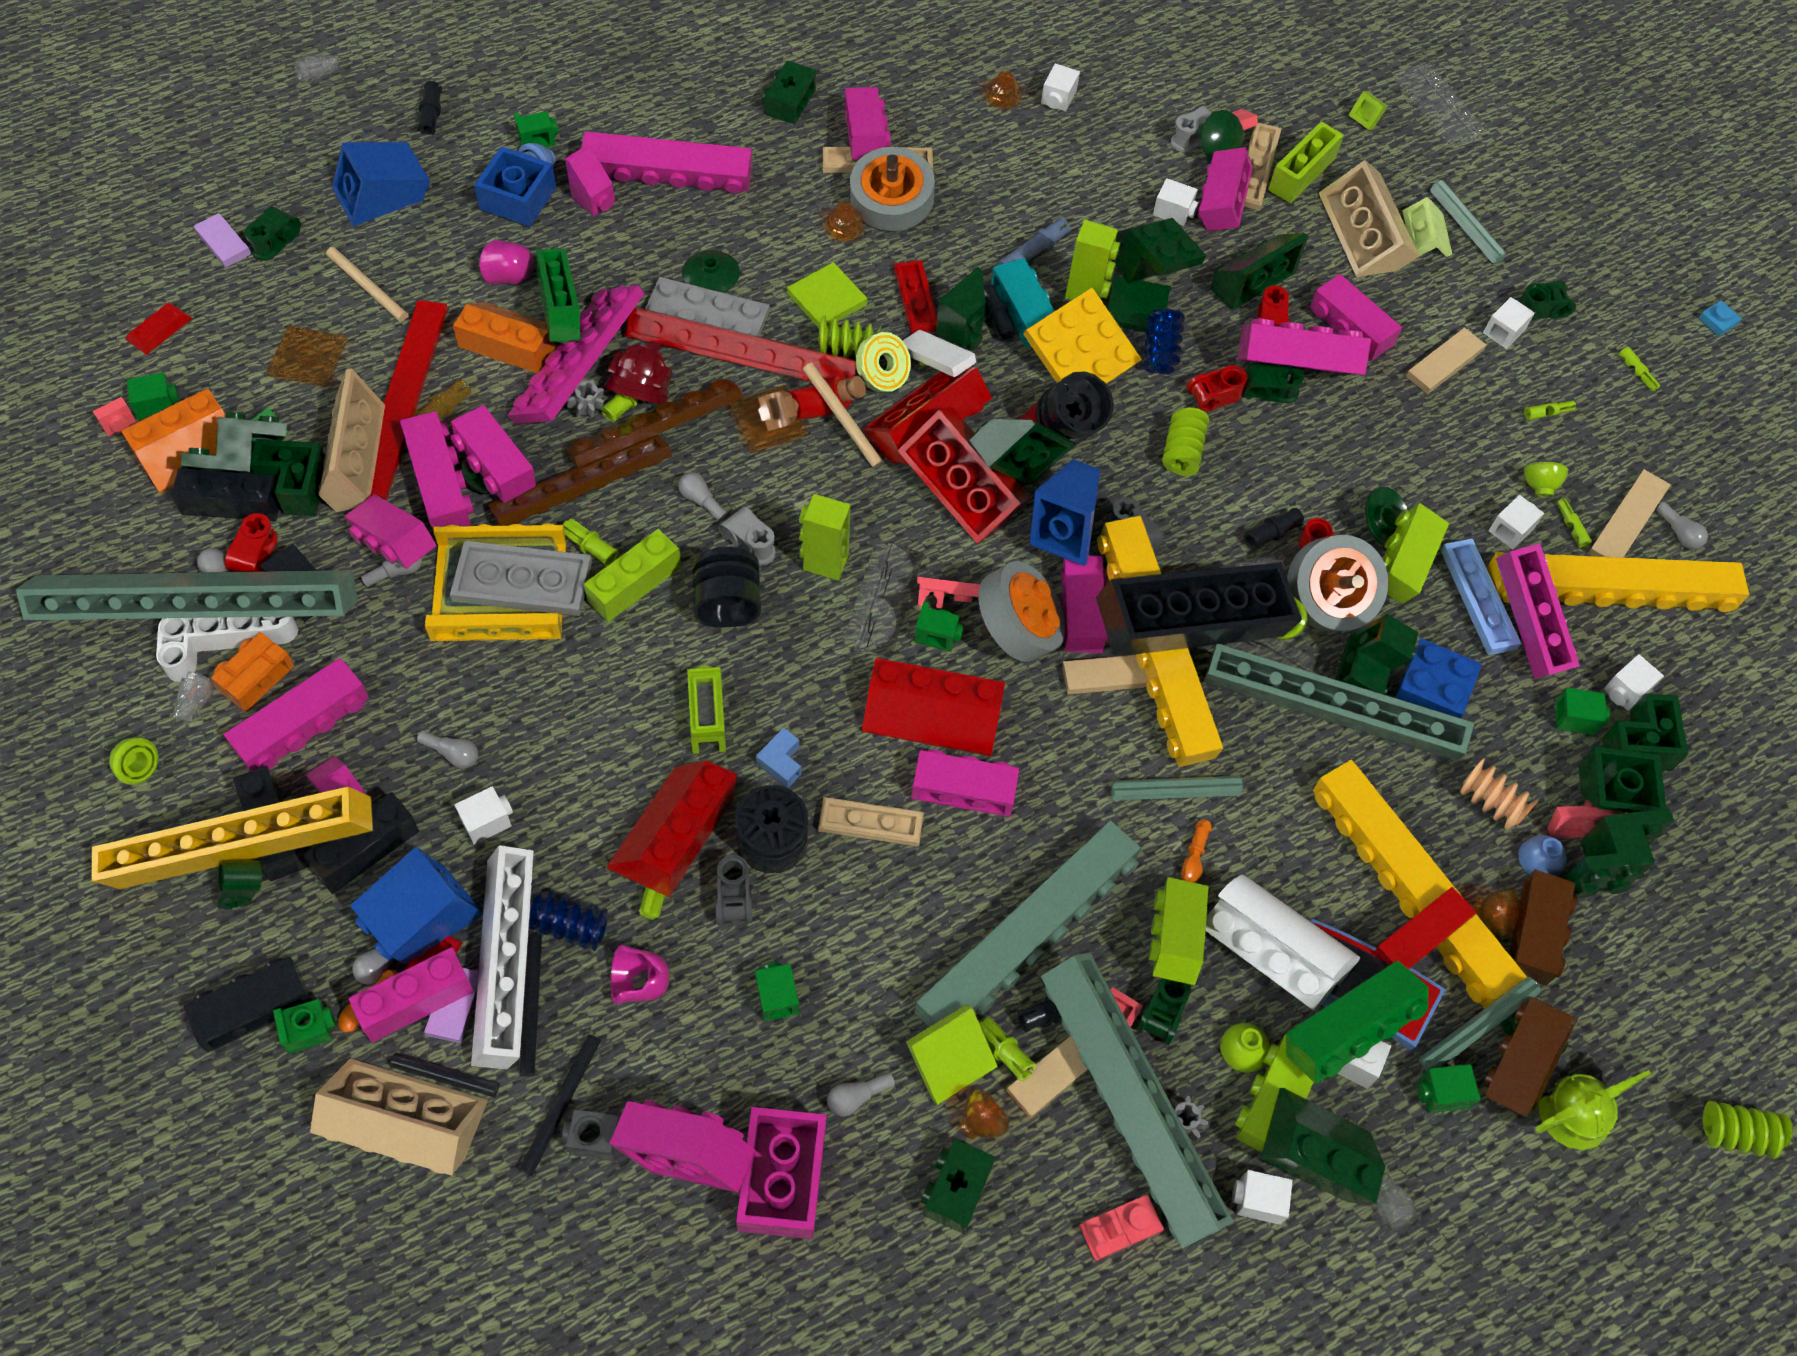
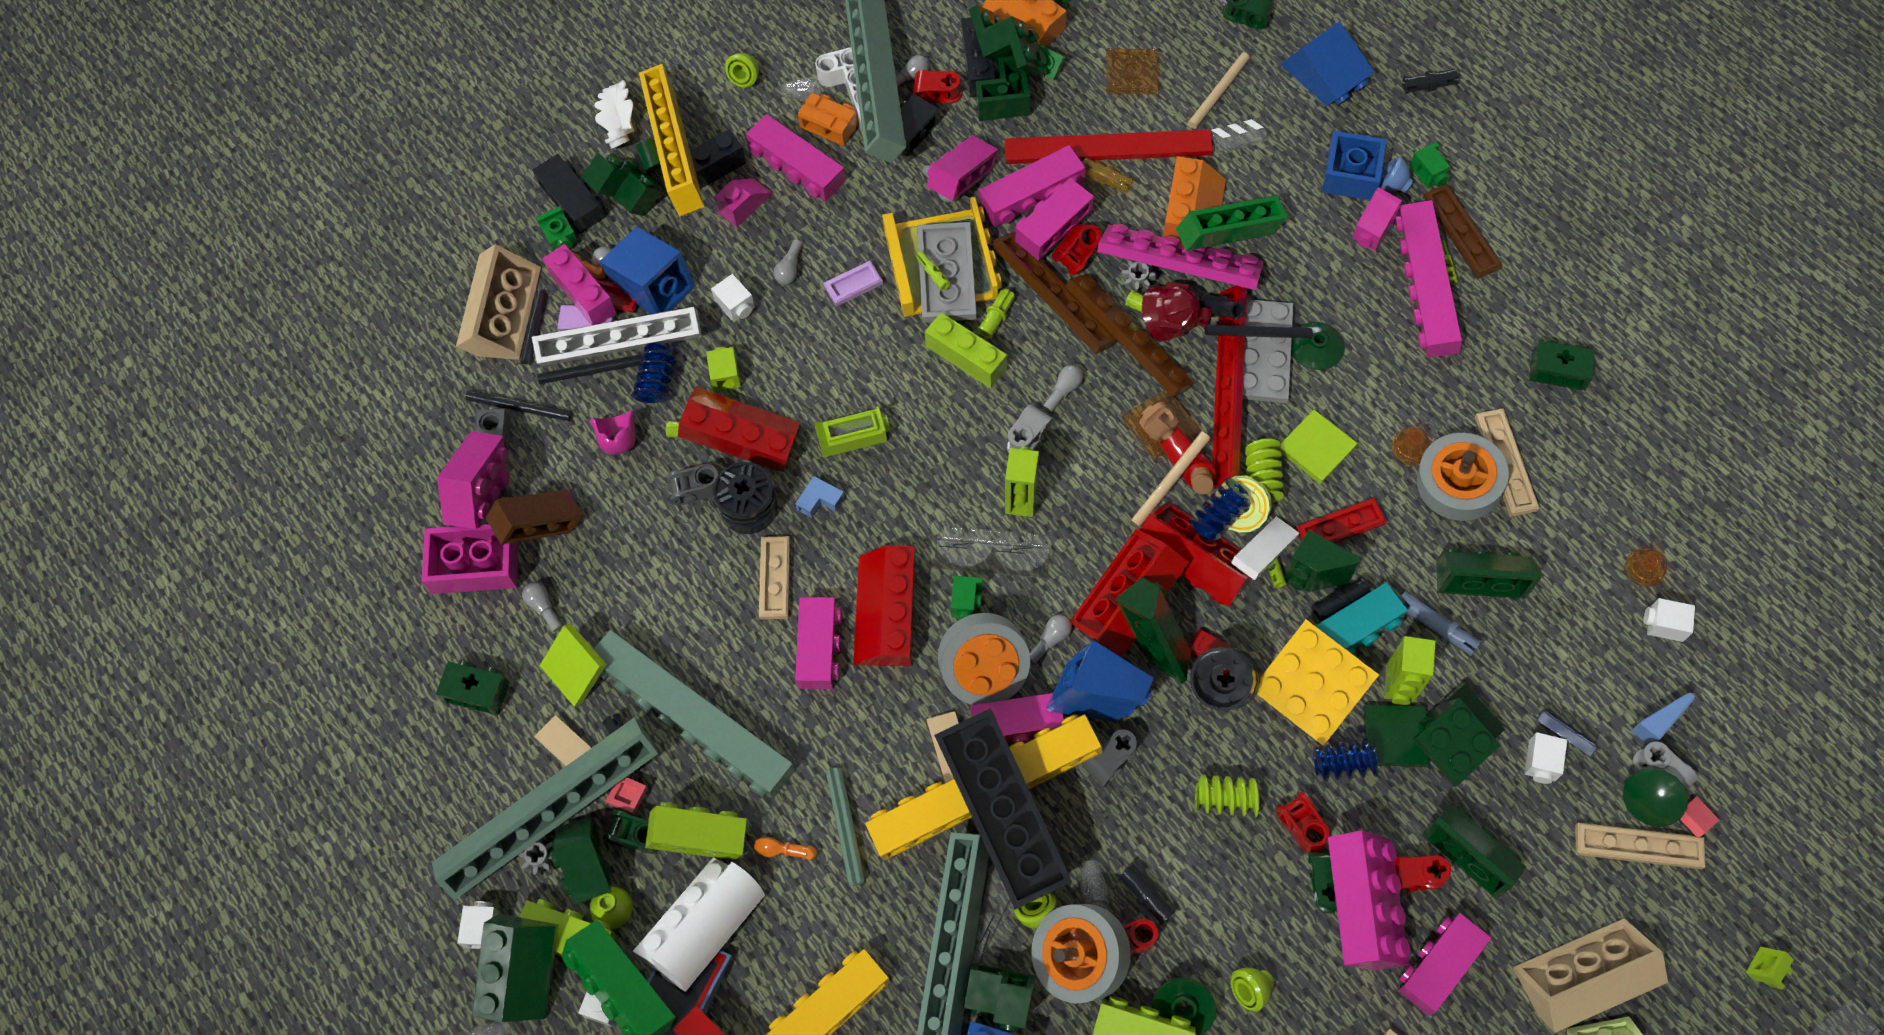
camera: 90 degrees right, 5 degrees up
(136, 928) = (615, 113): none -> white plant
(262, 924) = (623, 181): none -> dark green brick
(346, 858) = (700, 229): black brick -> none
(351, 444) = (1041, 120): tan slope -> none
(434, 277) = (1239, 136): none -> clear tile
(500, 683) = (853, 283): none -> lavender tile
(506, 263) = (1270, 178): dark pink hair -> none
(521, 585) = (934, 272): none -> lime pin
(533, 440) = (1073, 250): none -> red piece
(581, 838) = (723, 368): none -> lime brick
(638, 125) = (1463, 232): none -> reddish brown tile
(653, 328) = (1222, 306): none -> black pin
(692, 304) = (1258, 331): none -> black bar
(726, 587) = (962, 419): black wheel -> none
(748, 1077) = (533, 516): none -> reddish brown brick
(777, 991) = (615, 530): green brick -> none
(865, 121) = (1541, 437): dark pink brick -> none
(892, 374) = (1223, 511): none -> clear blue piece
(962, 591) = (1008, 597): coral plate -> none
(983, 1117) = (529, 700): clear orange brick -> none
(987, 553) = (1055, 631): none -> light grey piece
(994, 195) = (1486, 574): none -> dark green slope
(1006, 1049) = (585, 708): lime axle -> none
(1121, 1227) = (451, 816): coral plate -> none
(1151, 116) = (1657, 724): none -> medium blue slope
(1153, 182) = (1567, 732): none -> dark blue tile
(1199, 1061) = (580, 858): none -> dark green brick
(1225, 189) = (1580, 808): dark pink brick -> none
(1305, 162) = (1652, 893): lime brick -> none
(1370, 462) = (1252, 987): none -> lime brick

